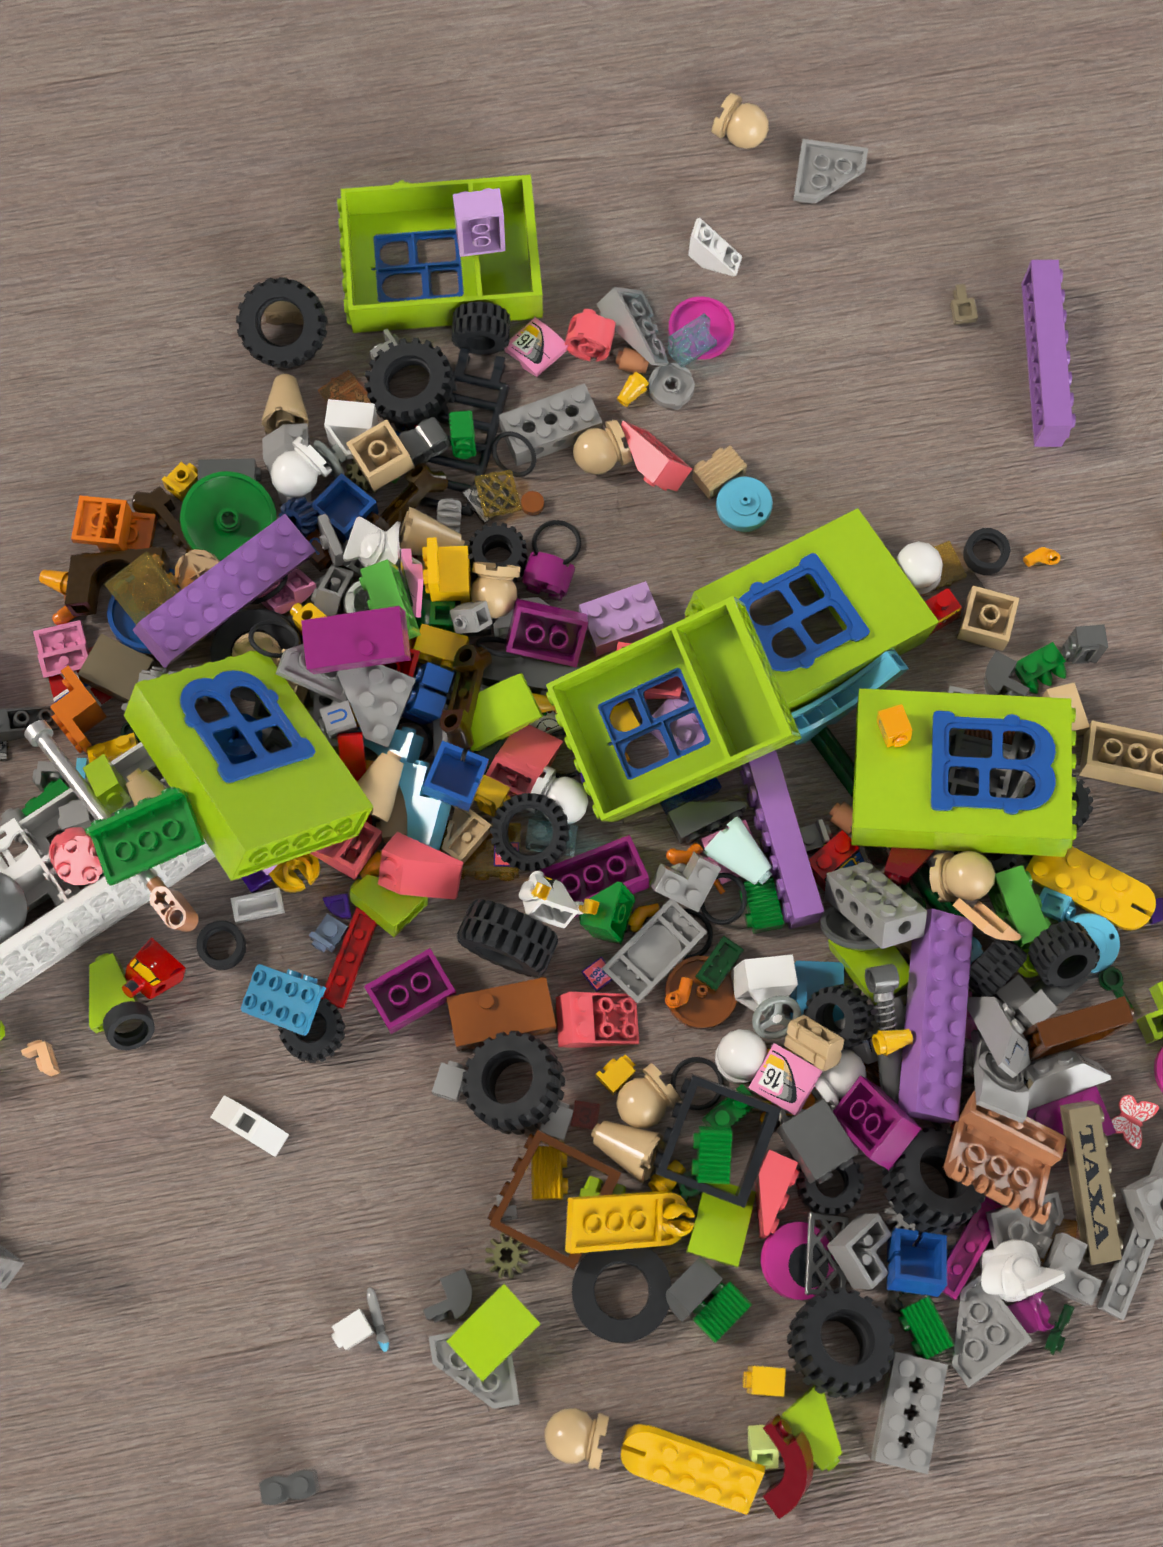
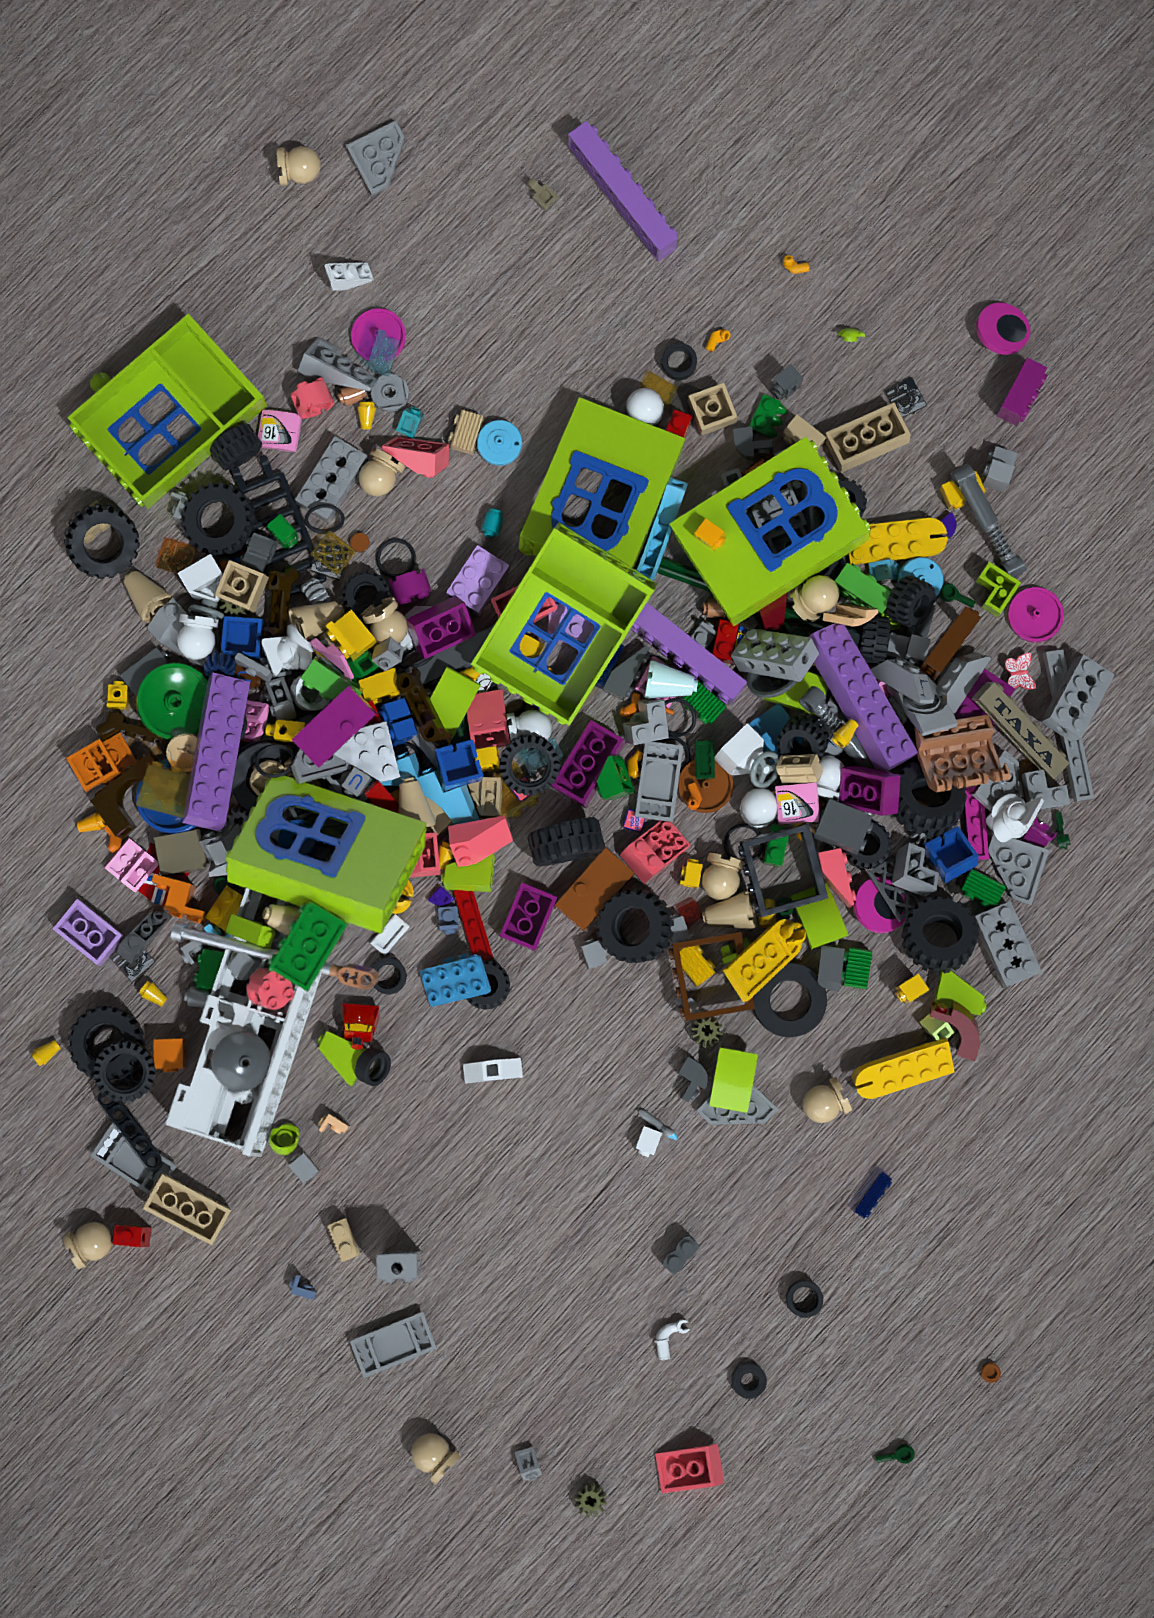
camera: 35 degrees left, 10 degrees up
(479, 222) = (188, 379): lavender brick -> none
(550, 902) = (575, 800): white torso -> none
(670, 424) = (410, 421): none -> teal bracket
(678, 574) = (492, 523): none -> teal brick
(713, 1154) = (788, 881): green brick -> none

